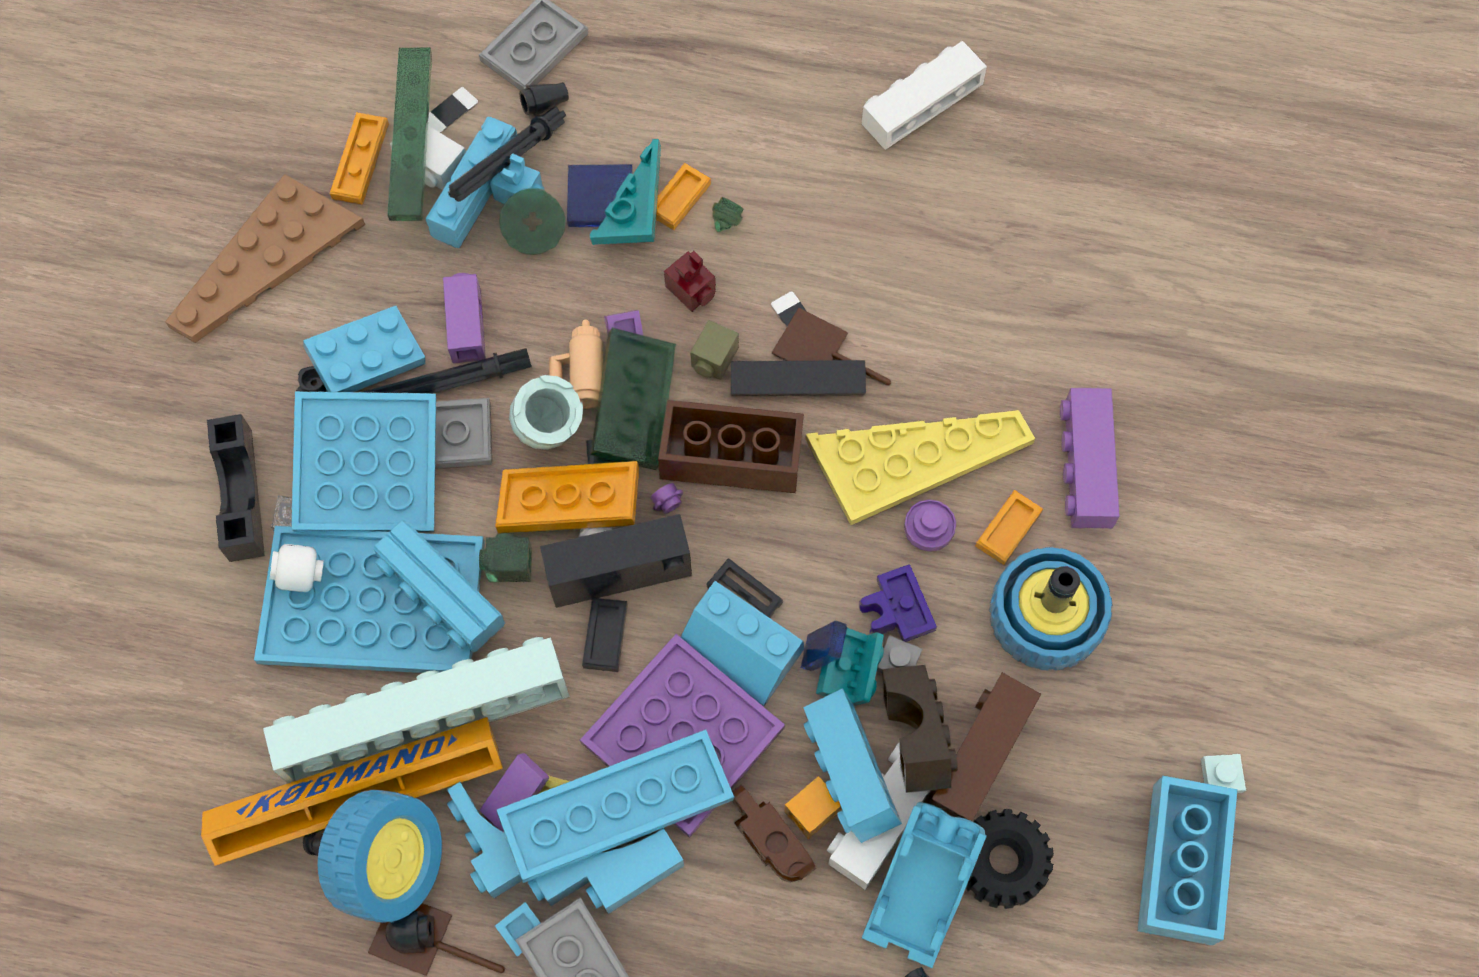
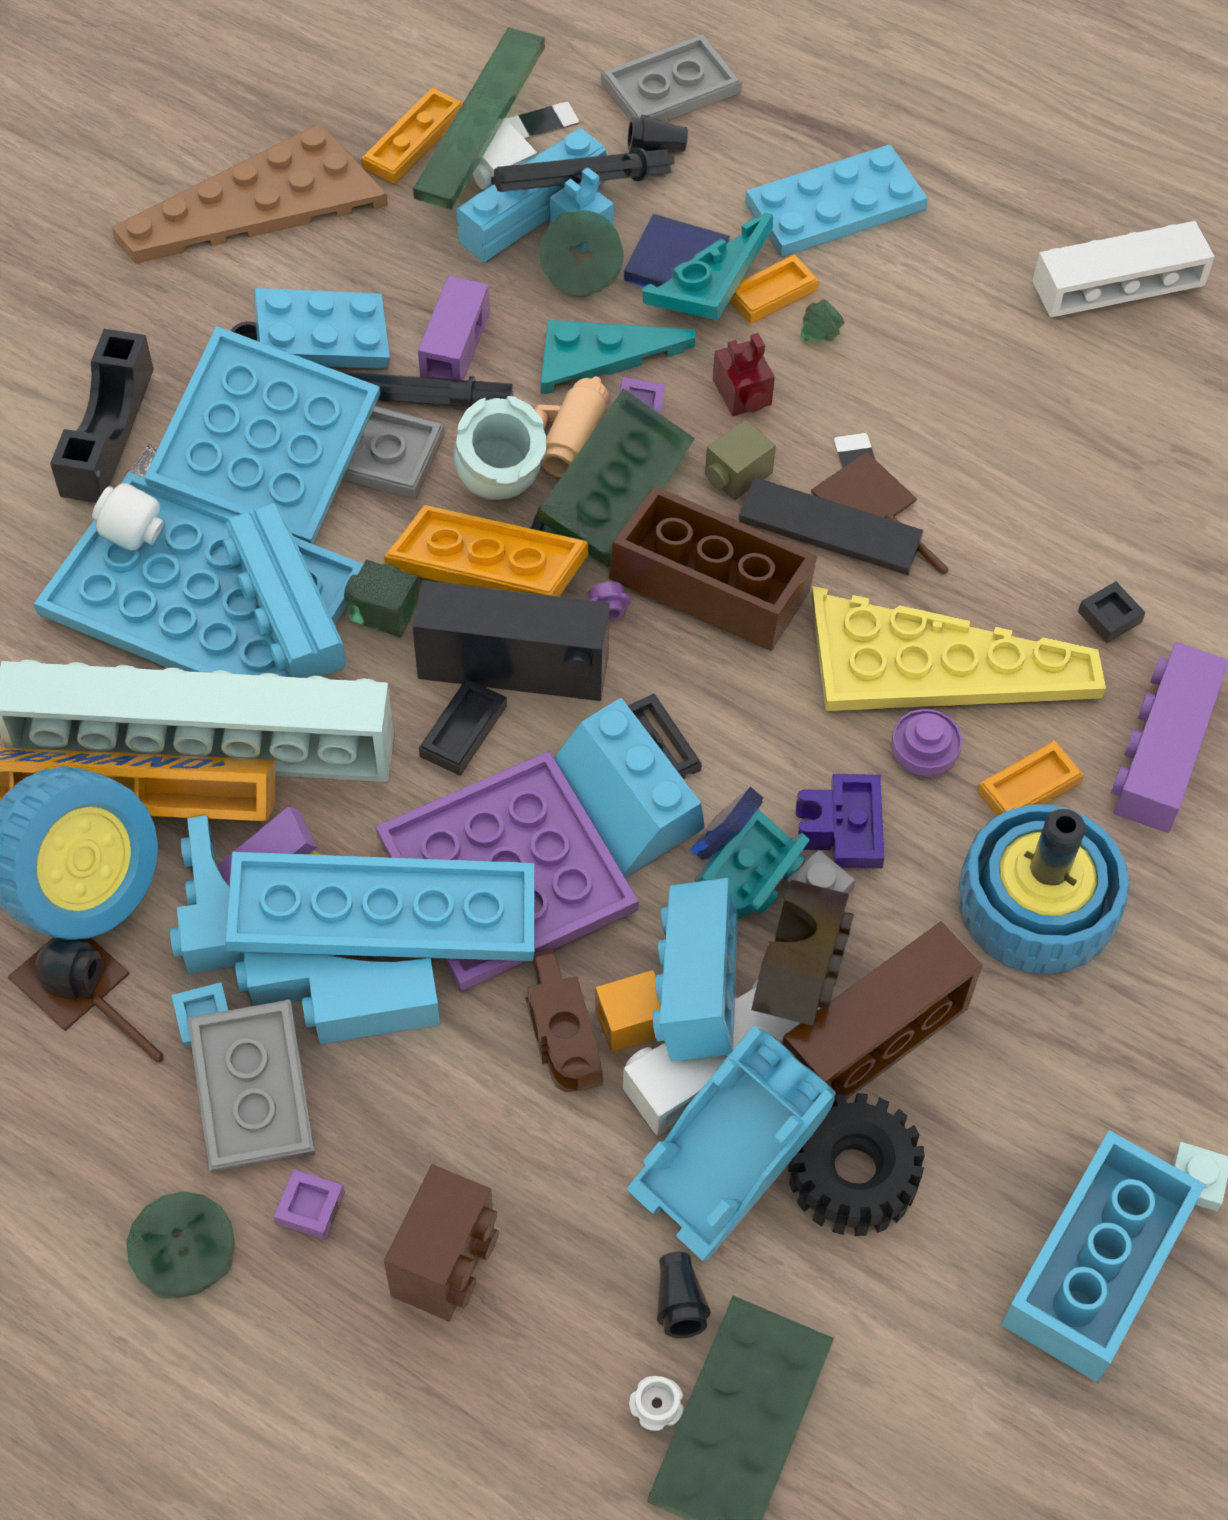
camera: 20 degrees right, 10 degrees down
(568, 295) = (602, 348): none -> teal wing
(695, 104) = (837, 200): none -> medium azure plate
(1015, 375) = (1111, 612): none -> black plate

